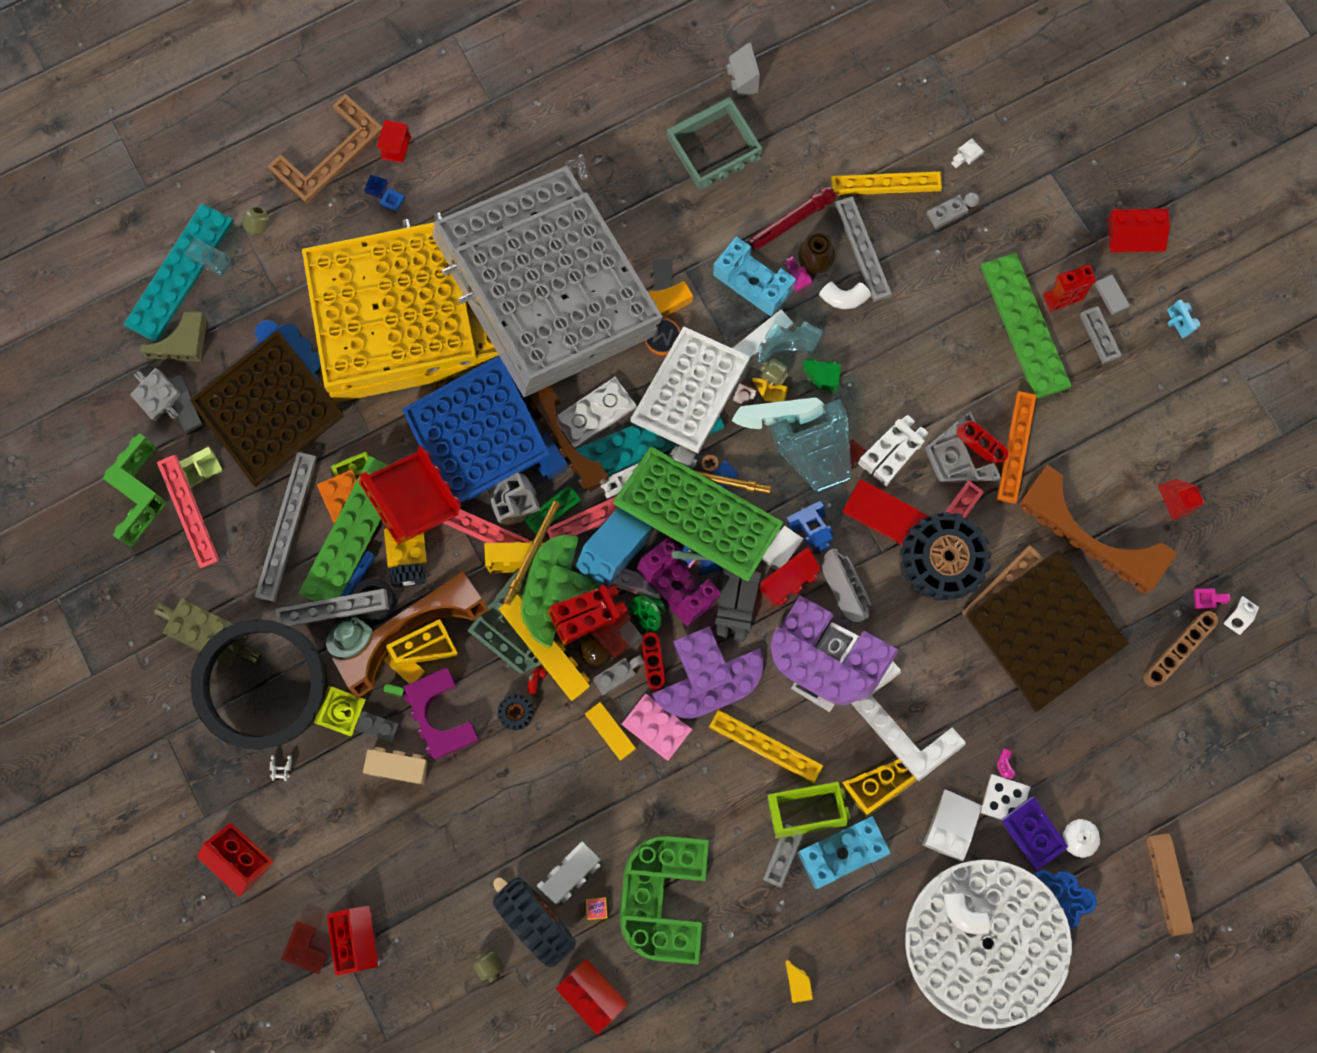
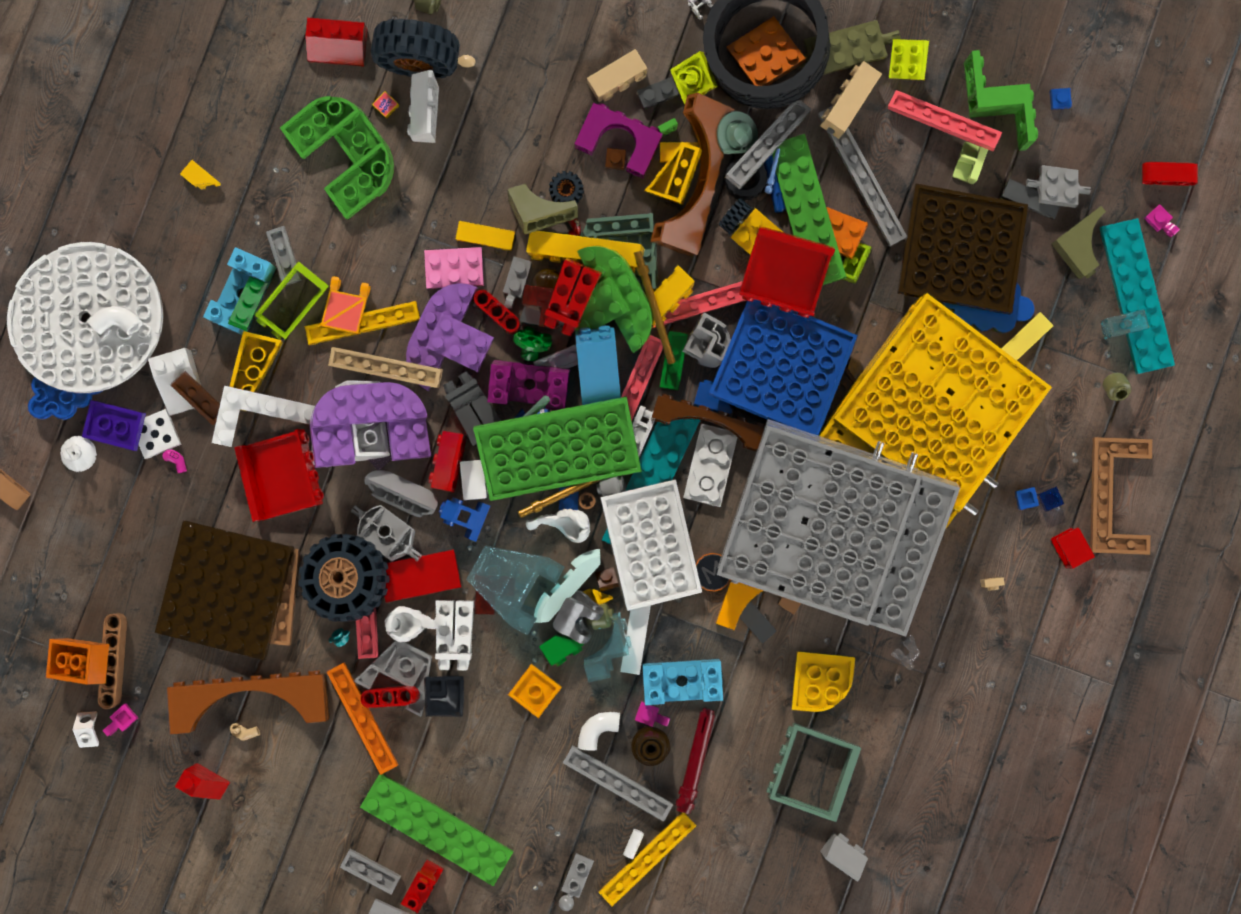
camera: 135 degrees right, 10 degrees up
(70, 335) = (1169, 173): none -> red beam
(90, 457) = (1060, 98): none -> blue plate
(109, 311) = (1159, 219): none -> dark pink plate
(169, 579) = (908, 59): none -> neon yellow plate
(240, 588) = (851, 98): none -> tan brick
(268, 682) = (766, 53): none -> orange plate
(284, 310) = (1027, 336): none -> light yellow tile
(358, 579) = (770, 181): none -> medium blue piece
(456, 703) = (615, 159): none -> reddish brown plate
(471, 164) = (992, 583): none -> tan plate
(556, 711) = (537, 213): none -> olive arch
(653, 199) = (821, 680): none -> yellow plate
(735, 453) = (570, 522): none -> white hair
(771, 766) = (344, 310): none -> flag
(777, 692) = (385, 367): none -> tan plate
(793, 387) = (570, 616): none -> flat silver piece
(845, 833) = (247, 303): none -> green plate
(868, 361) = (535, 690): none -> light orange plate
(881, 582) = (399, 540): none -> light grey plate
(887, 200) = (633, 843): none -> white axle
(924, 485) = (407, 623): none -> white hair
(931, 679) = (279, 475): none -> red panel
(940, 410) = (444, 696): none -> black plate
(947, 795) = (197, 397): none -> reddish brown plate
(985, 519) = (339, 637): none -> teal plate
(1118, 510) = (242, 733): none -> tan arm
(1209, 667) = (77, 661): none -> orange brick

